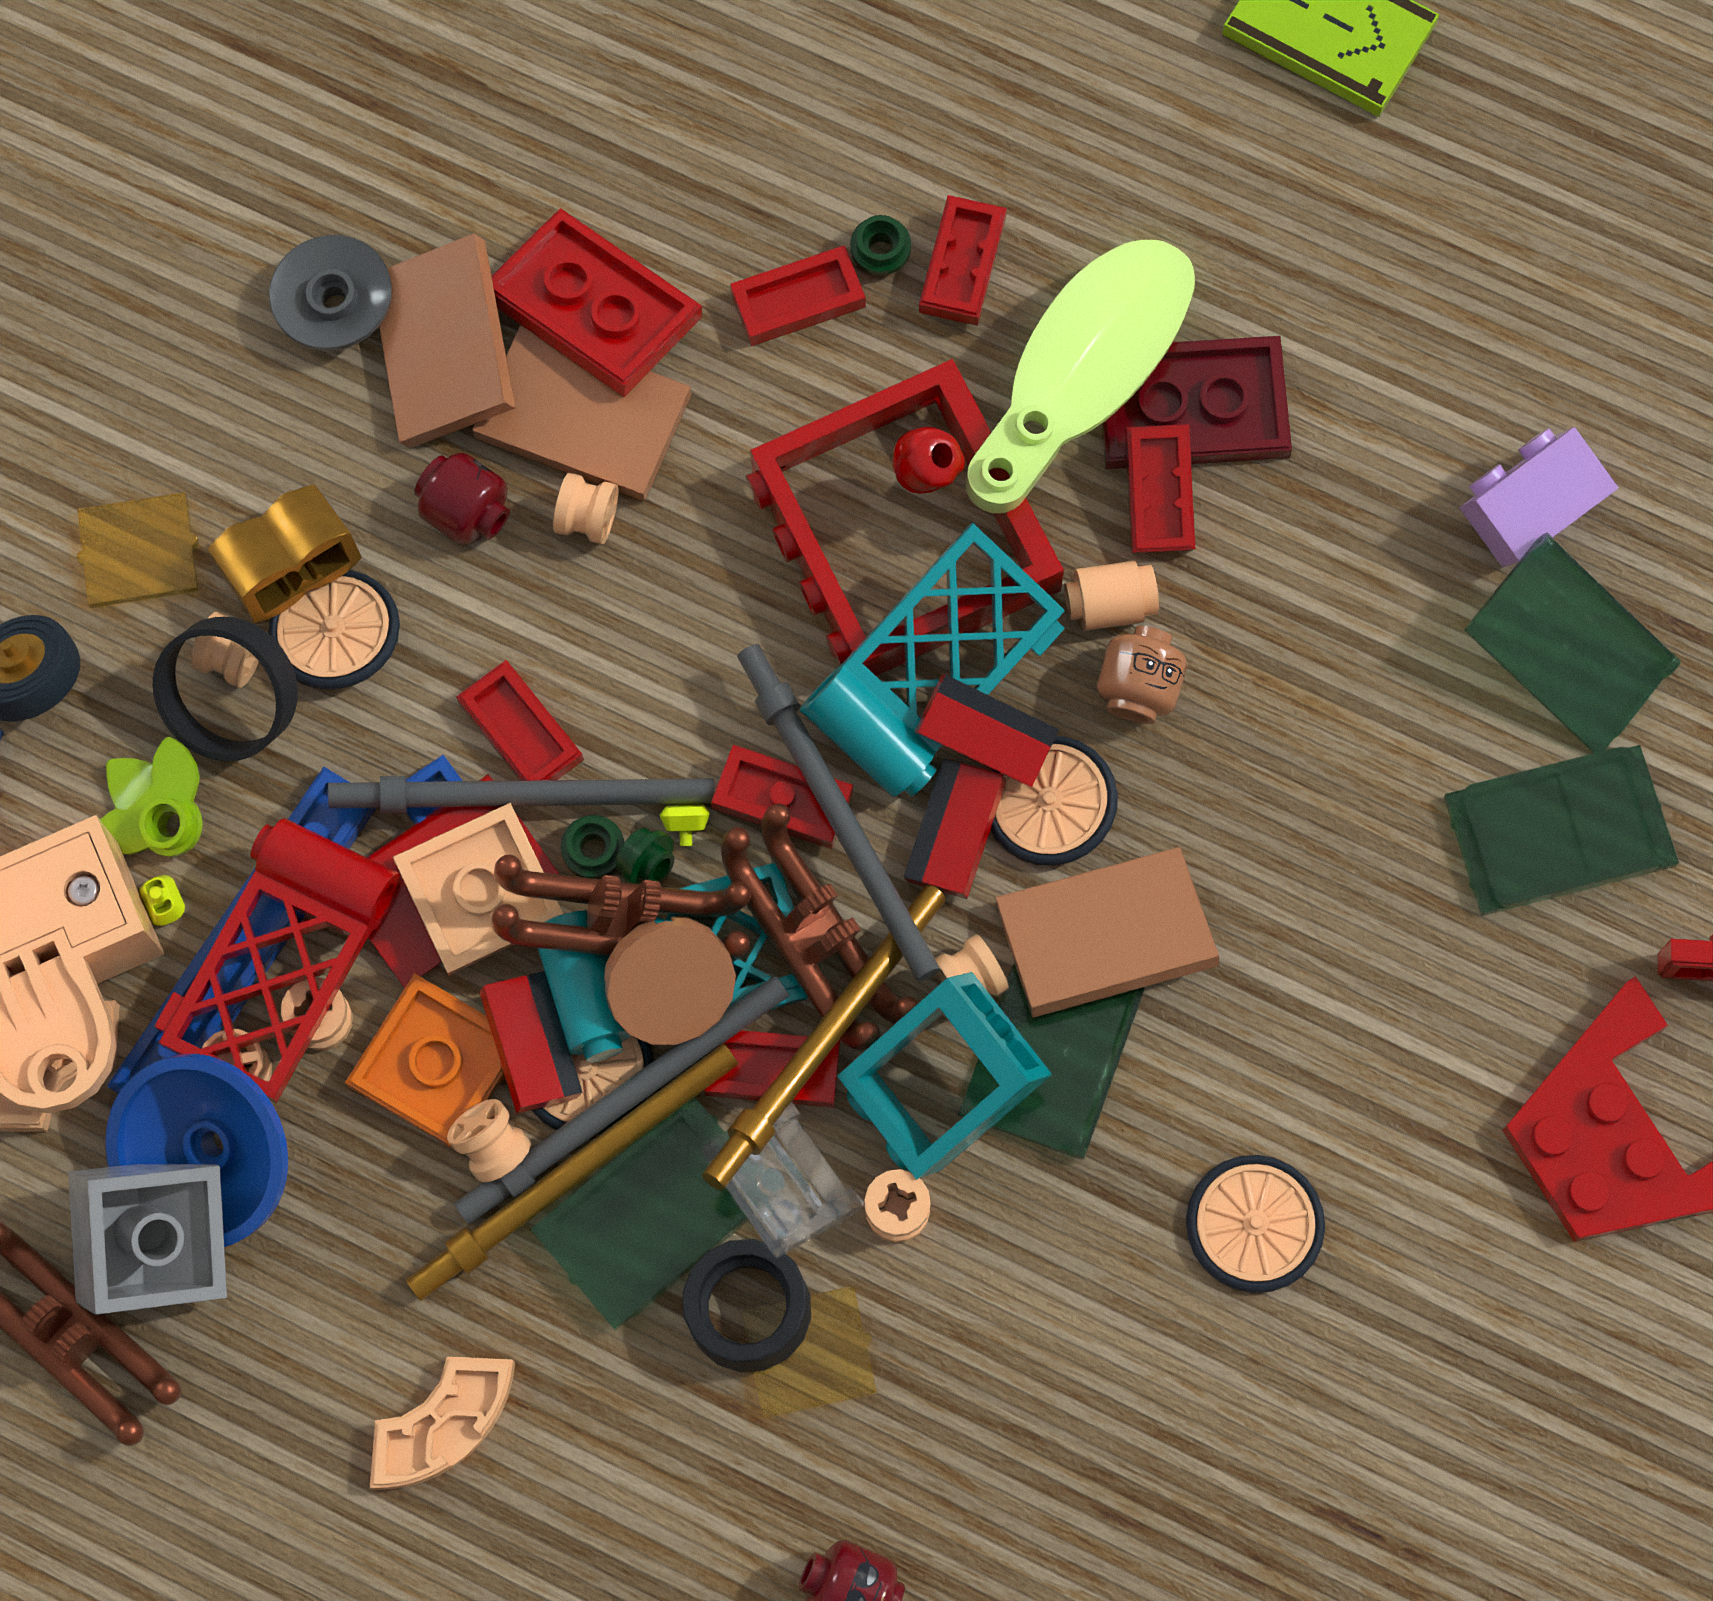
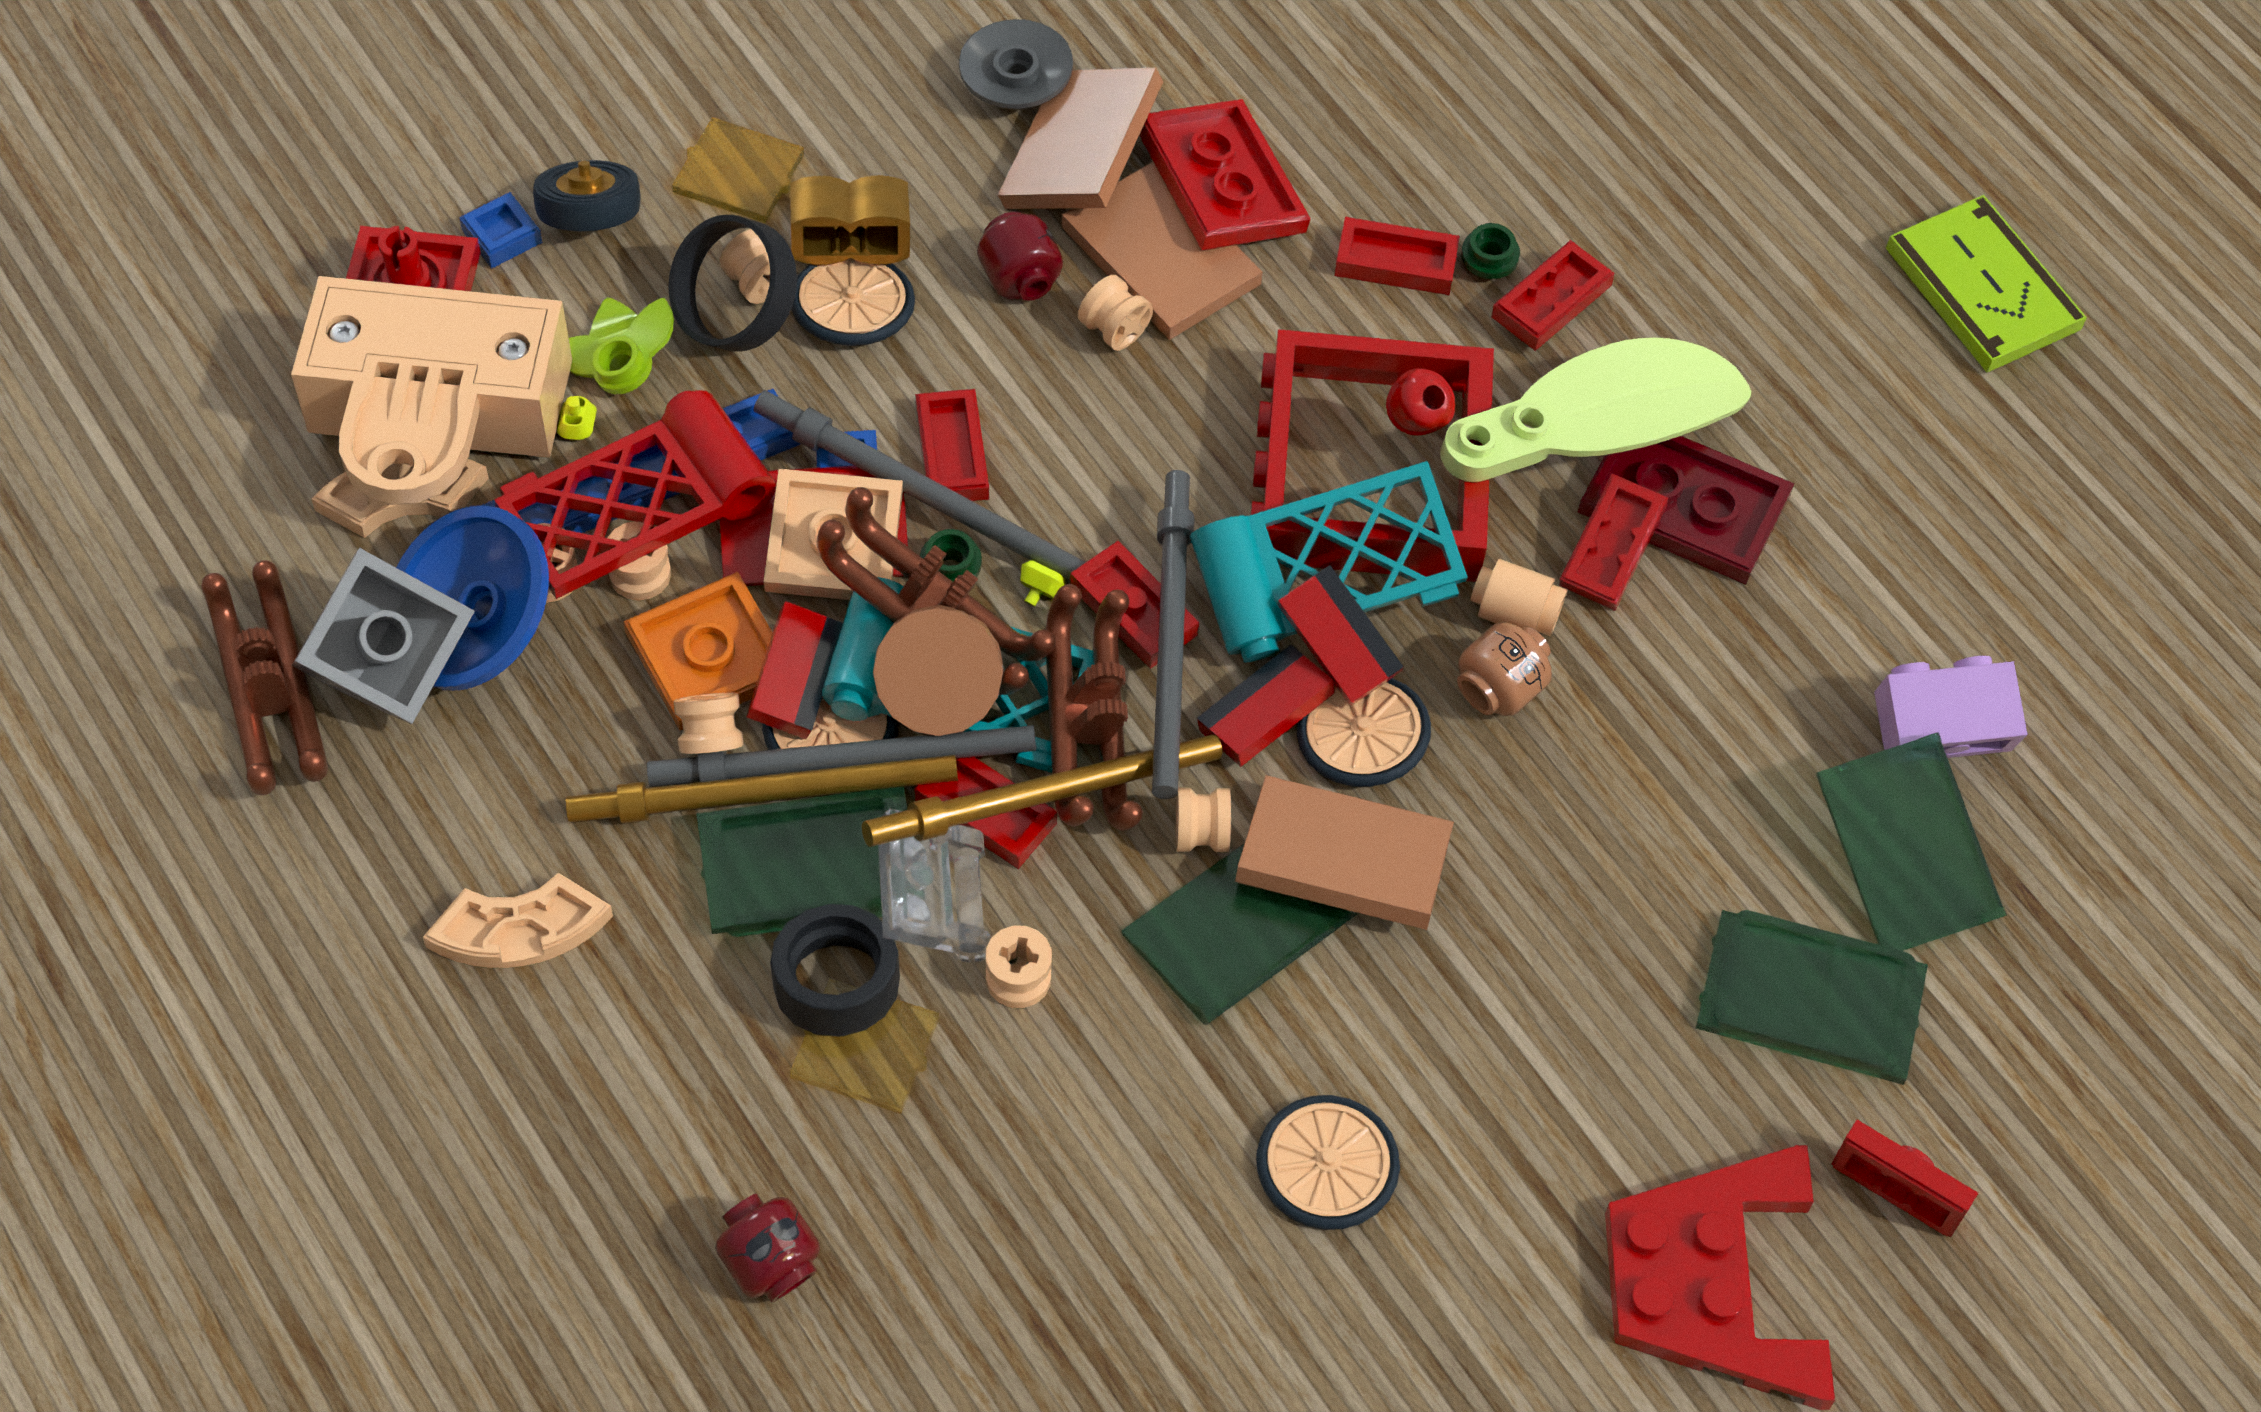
camera: 25 degrees right, 15 degrees down
(646, 856) = (996, 585): dark green plate -> none
(990, 1038) = (1185, 868): teal window -> none

